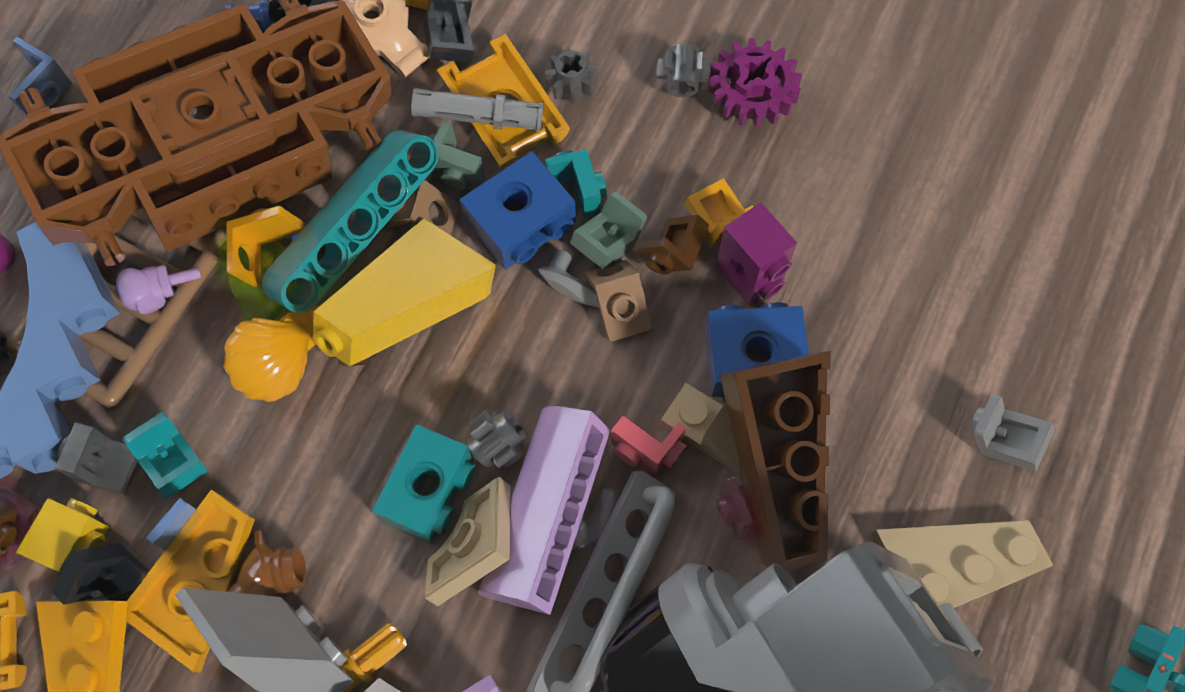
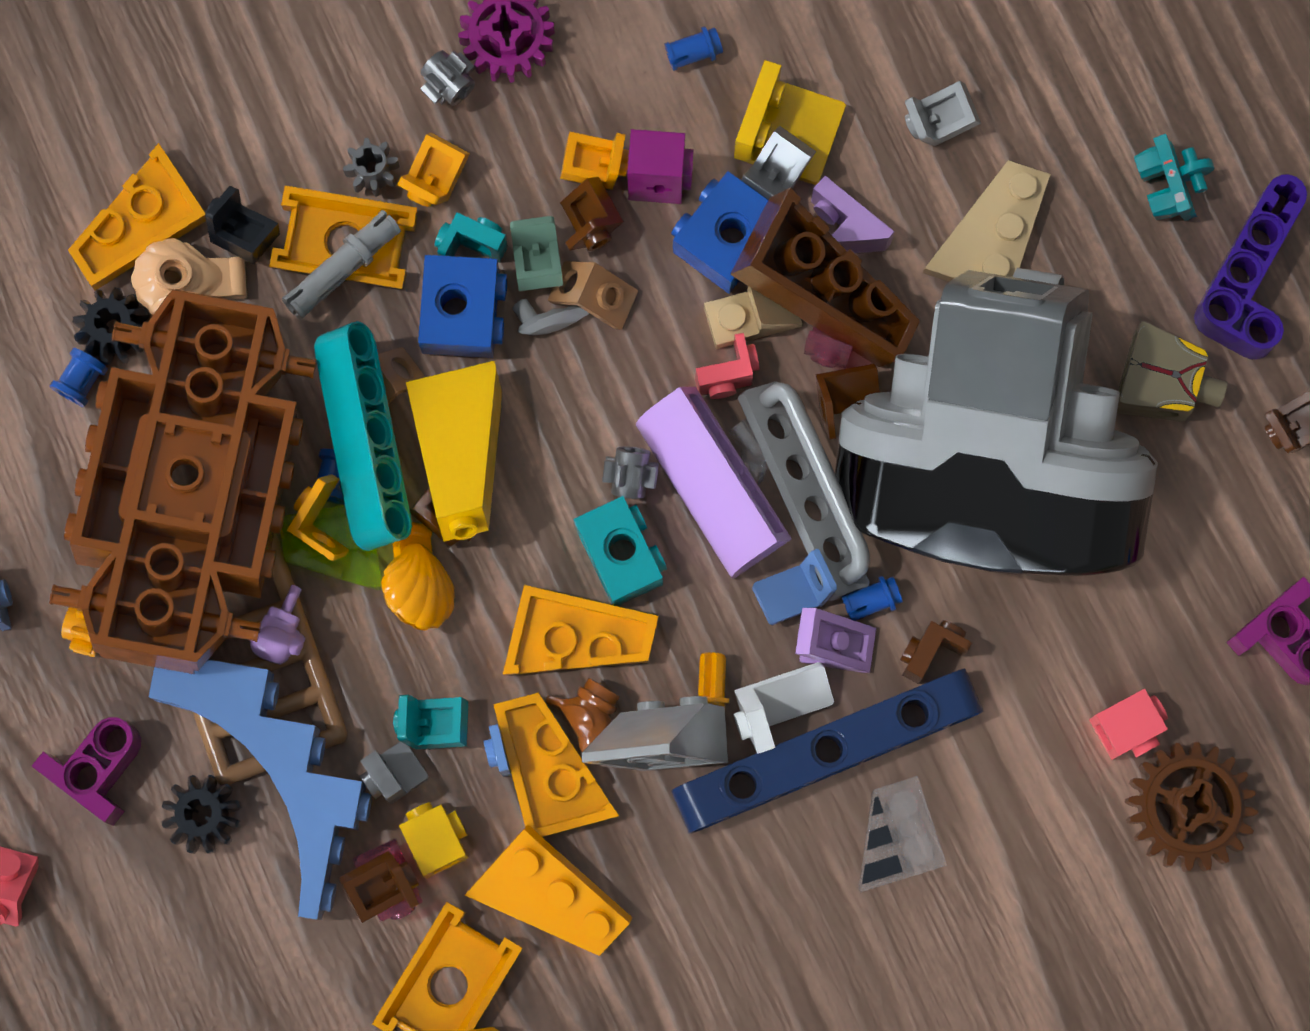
camera: 50 degrees left, 10 degrees up
(99, 572) = (490, 826): black bracket -> none
(330, 508) = (575, 633): none -> light orange wing
(456, 166) = (381, 319): sand green bracket -> none
(475, 545) = (699, 550): tan tile -> none
(508, 655) = (796, 588): none -> medium blue bracket
(607, 117) = (434, 171): none -> light orange bracket
(713, 547) = (843, 388): none -> reddish brown bracket
(851, 341) = (778, 164): none -> flat silver bracket
(856, 447) = (858, 226): none -> lavender slope
(873, 214) = (694, 48): none -> blue pin
(881, 325) = (799, 111): none -> yellow bracket

